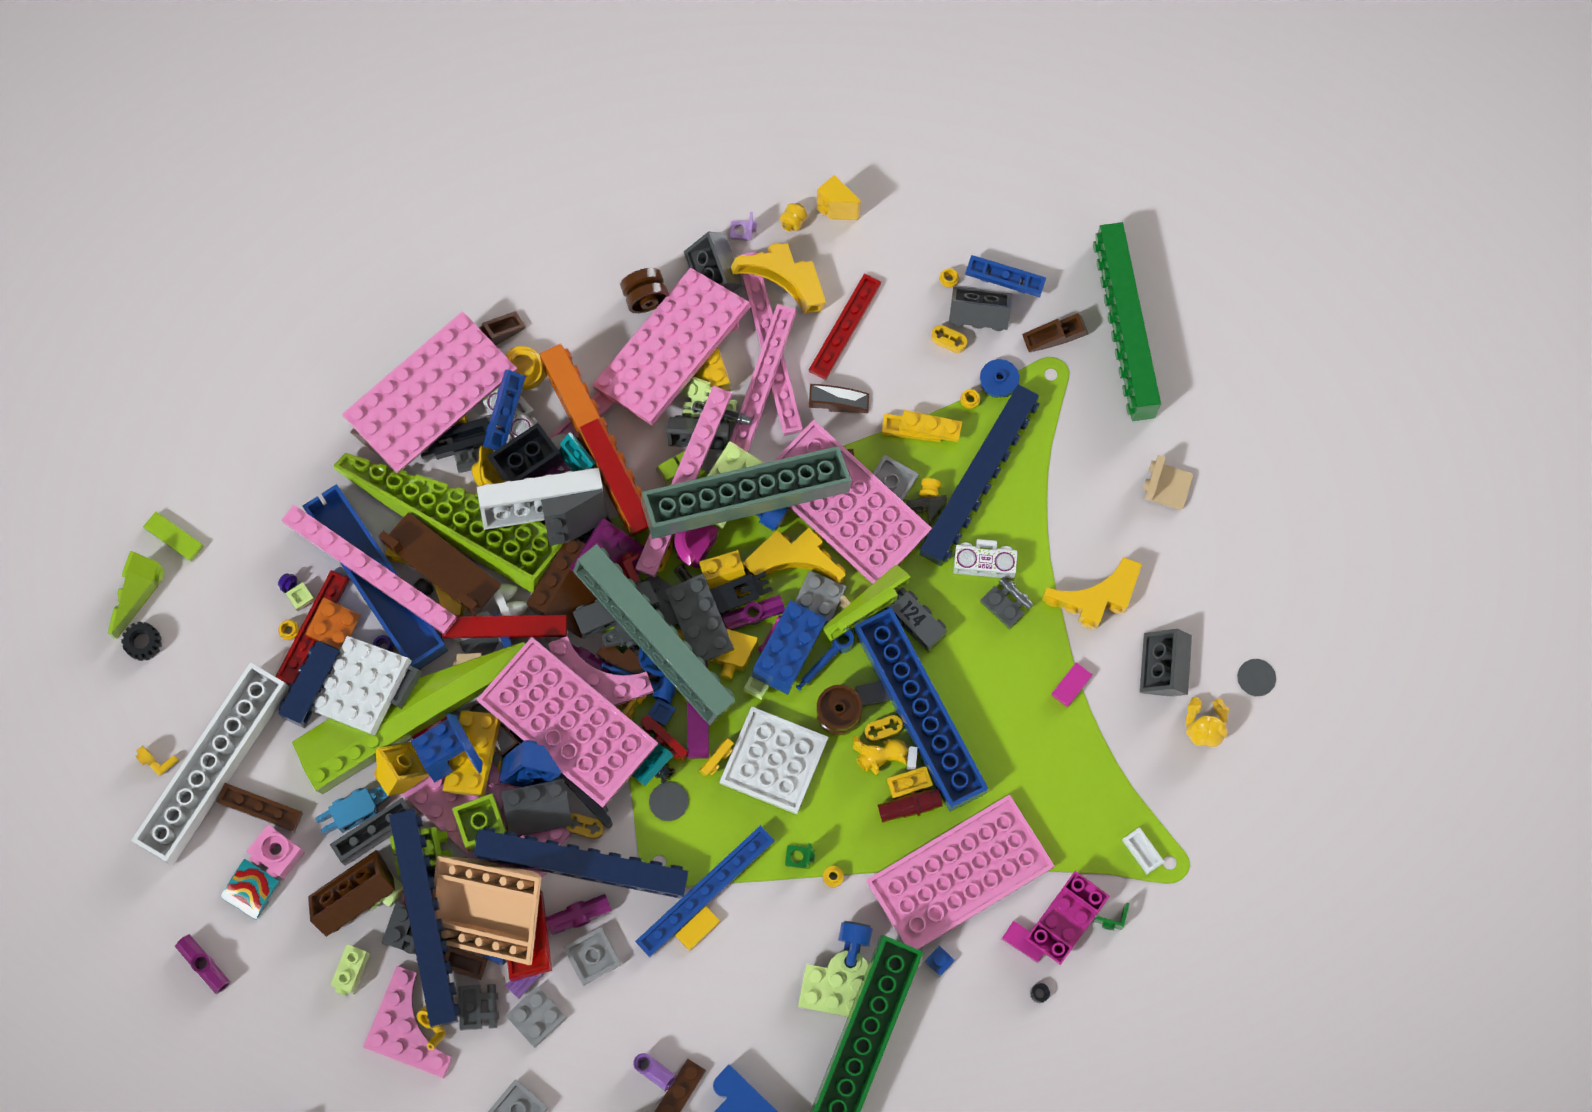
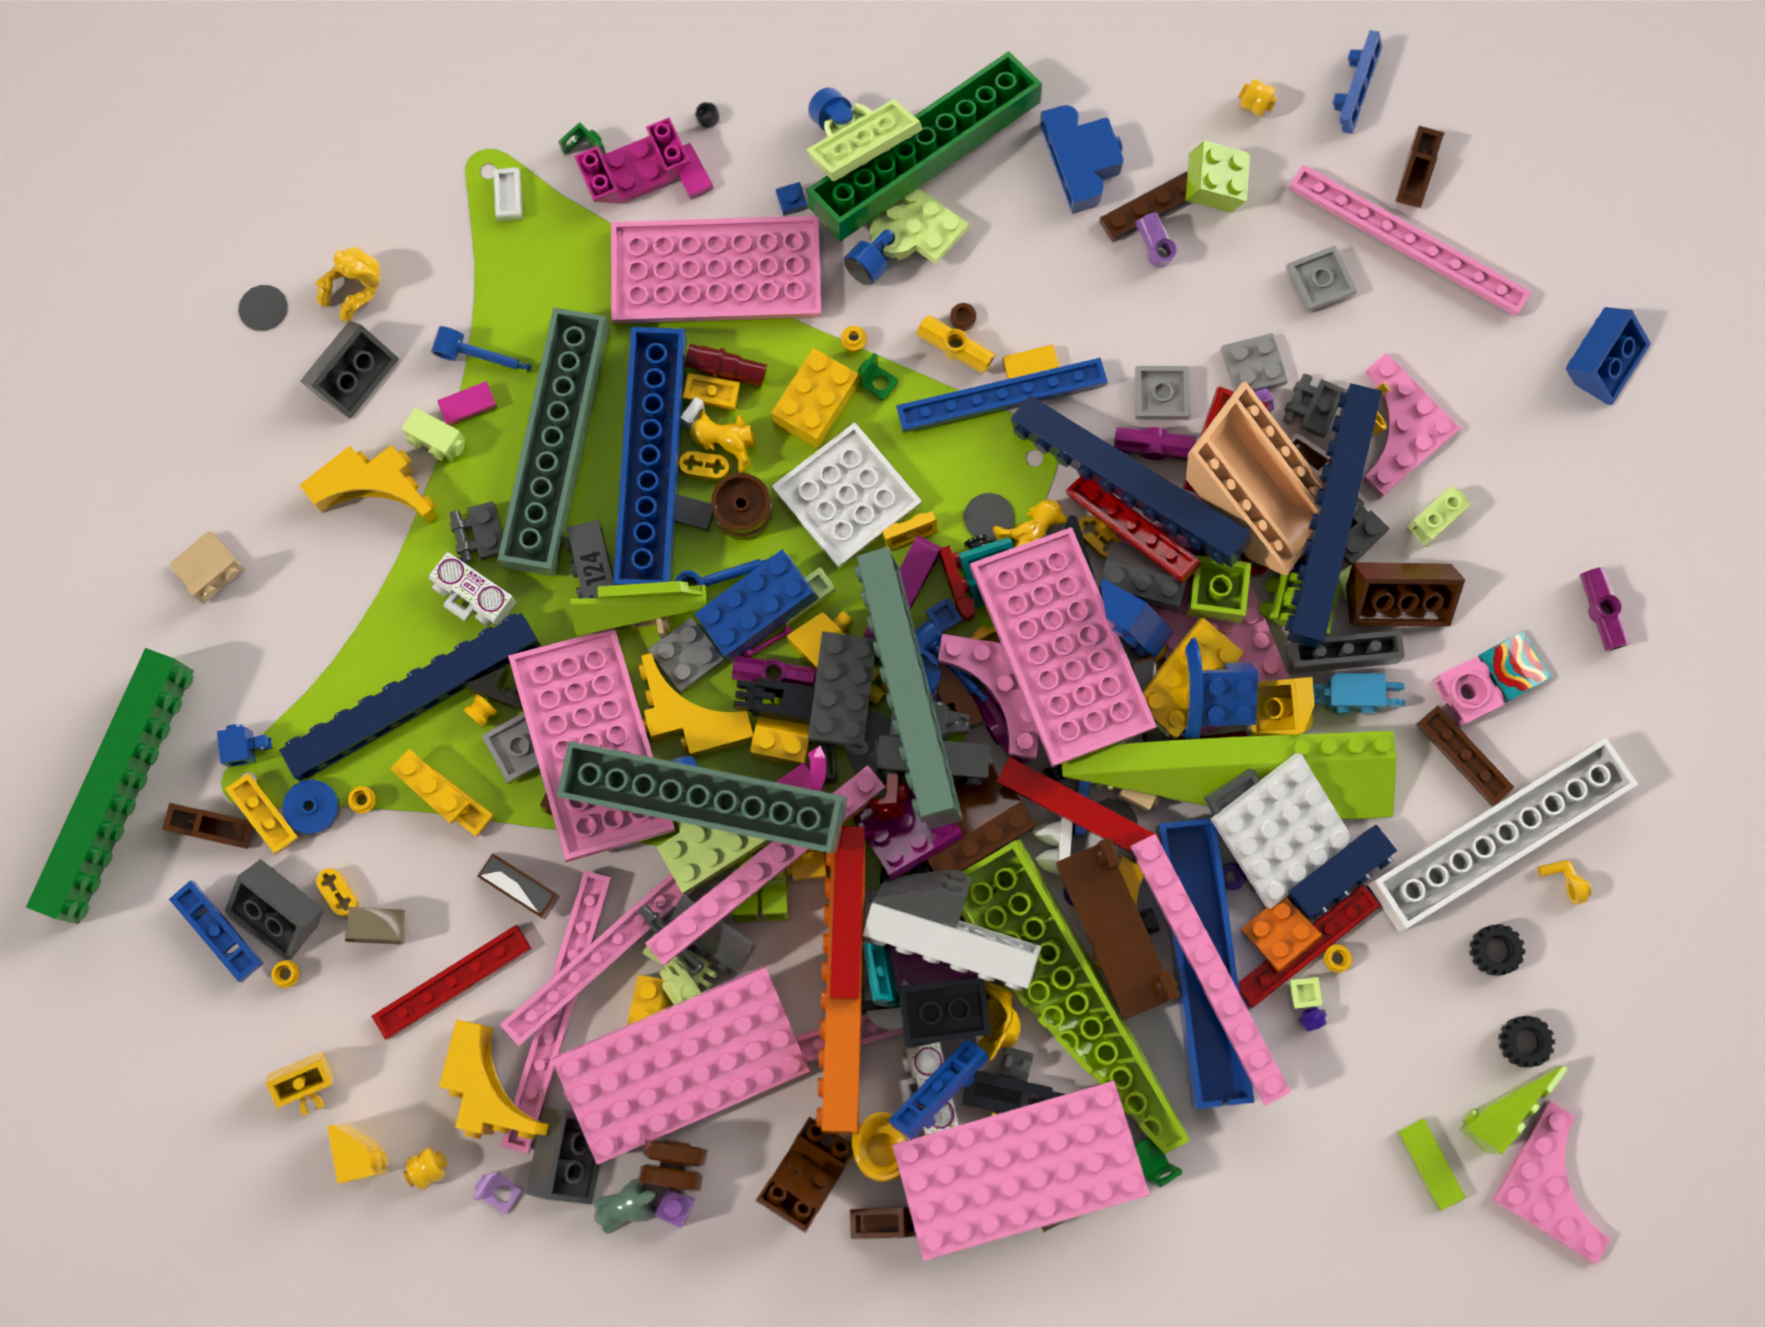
camera: 150 degrees left, 5 degrees up
(96, 556) = (1539, 1186): none -> bright pink plate
(193, 697) = (1513, 944): none -> black tyre
(349, 444) = (1155, 1163): none -> green bracket
(544, 829) = (1134, 529): none -> red tile
(561, 318) = (806, 1175): none -> reddish brown slope
(628, 266) = (675, 1207): none -> medium lavender brick
(631, 799) = (1044, 515): none -> yellow animal
(663, 257) = (628, 1205): none -> sand green animal
(765, 938) = (963, 316): none -> reddish brown tile
(772, 910) = (942, 335): none -> yellow piece
(833, 815) = (815, 398): none -> yellow brick
(897, 223) = (301, 1080): none -> yellow brick
(910, 328) = (375, 925): none -> dark tan piece
(913, 1019) = (856, 132): none -> yellowish green plate
(993, 687) = (554, 442): none -> sand green brick
(1026, 356) = (261, 814): none -> yellow plate
(1067, 387) = (239, 746): none -> blue brick
(1078, 648) = (434, 435): none -> yellowish green brick
(1109, 717) = (450, 344): none -> blue piece

